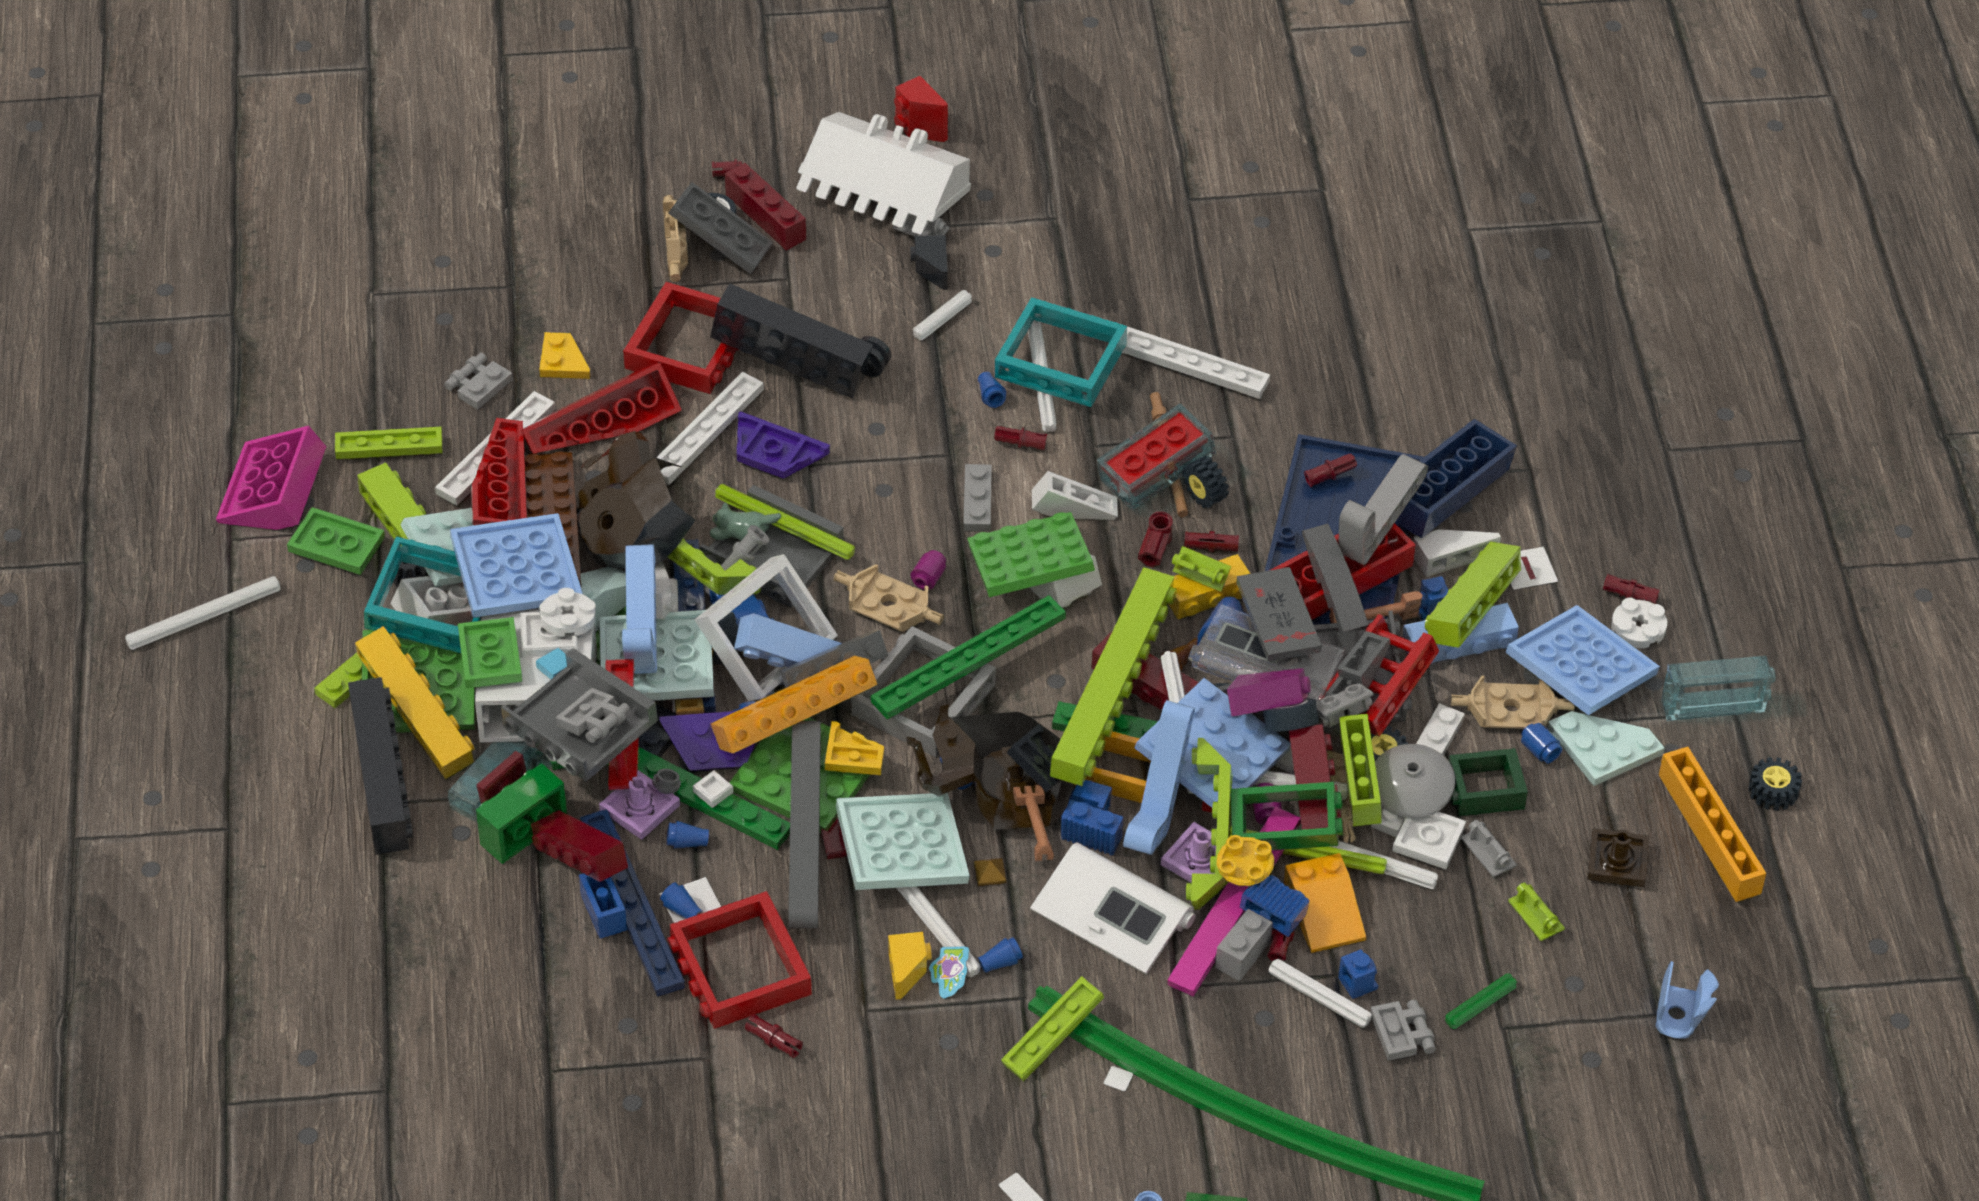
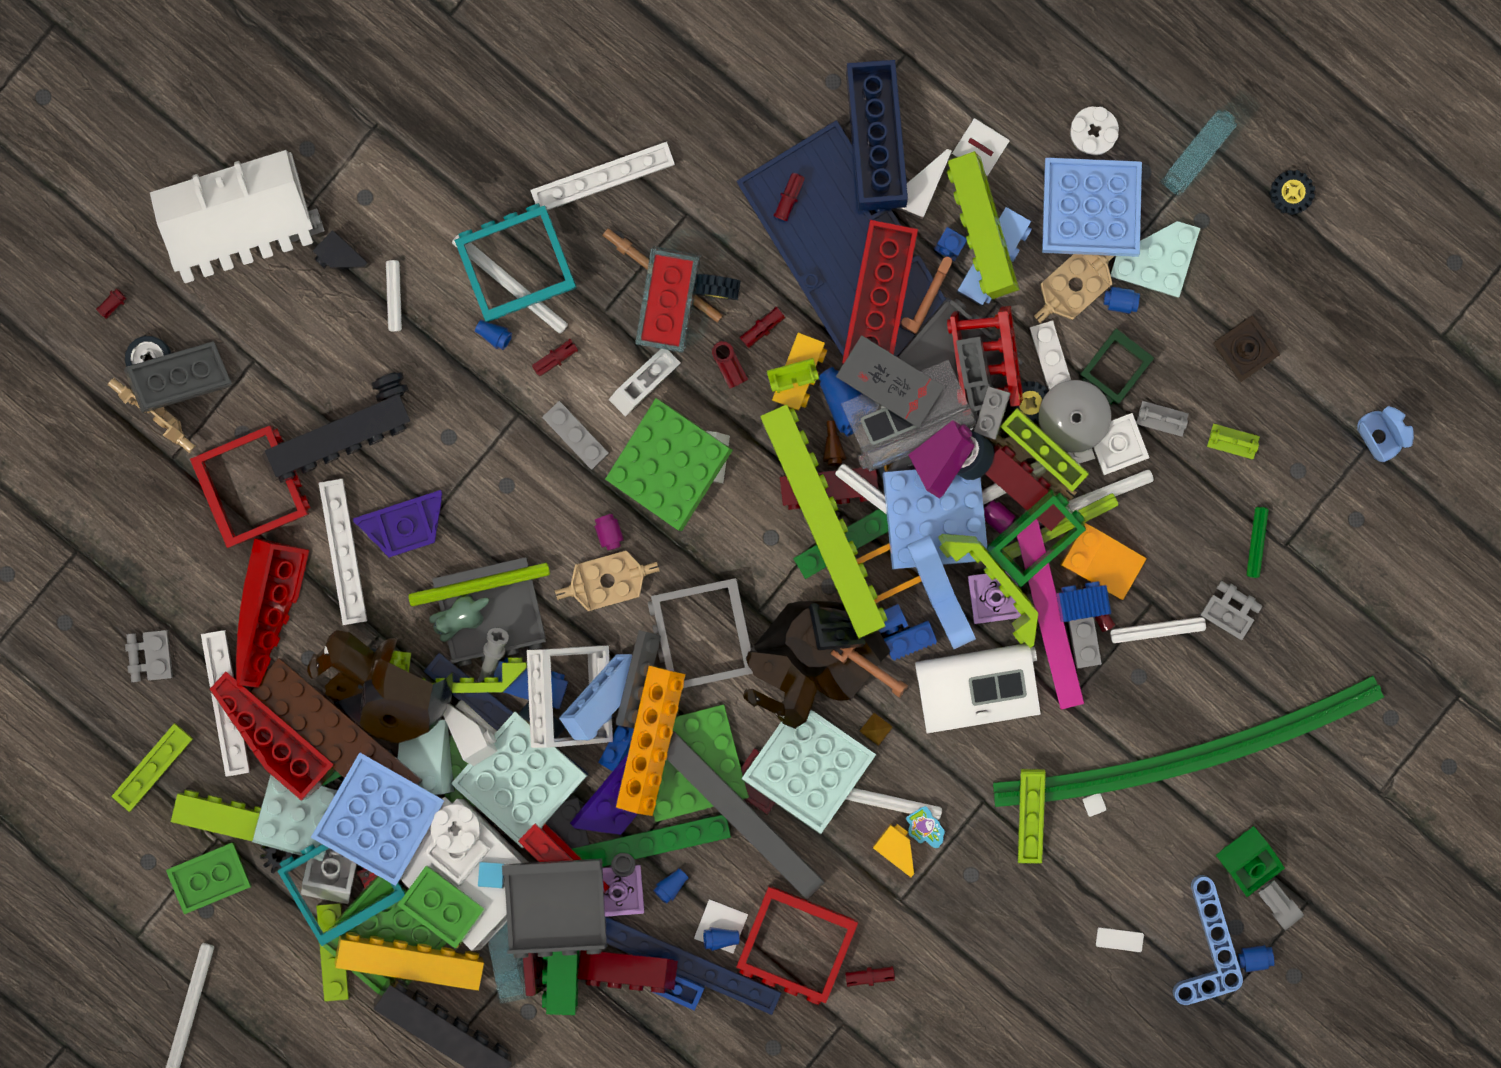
camera: 45 degrees left, 40 degrees up
(273, 480) = (114, 873): dark pink slope -> none
(562, 357) = (181, 582): yellow wing -> none
(587, 711) = (560, 905): light grey plate -> none
(640, 636) = (521, 800): light blue beam -> none
(689, 706) = (580, 797): pearl gold slope -> none
(713, 789) = (655, 841): white tile -> none
(765, 206) = (177, 317): dark red brick -> none
(852, 752) = (714, 732): yellow wing -> none
(921, 108) = (194, 126): red slope -> none
(968, 657) = (716, 592): green plate -> none
(1001, 955) = (947, 786): blue cone -> none
(1245, 860) = (1045, 598): yellow dish -> none
(1334, 577) = (899, 317): dark grey slope -> none
(1361, 970) = (1171, 596): blue brick -> none
(1365, 527) = (880, 232): light grey beam -> none
(1630, 589) = (1051, 114): dark red pin -> none
(1712, 824) = (1285, 270): light orange brick -> none

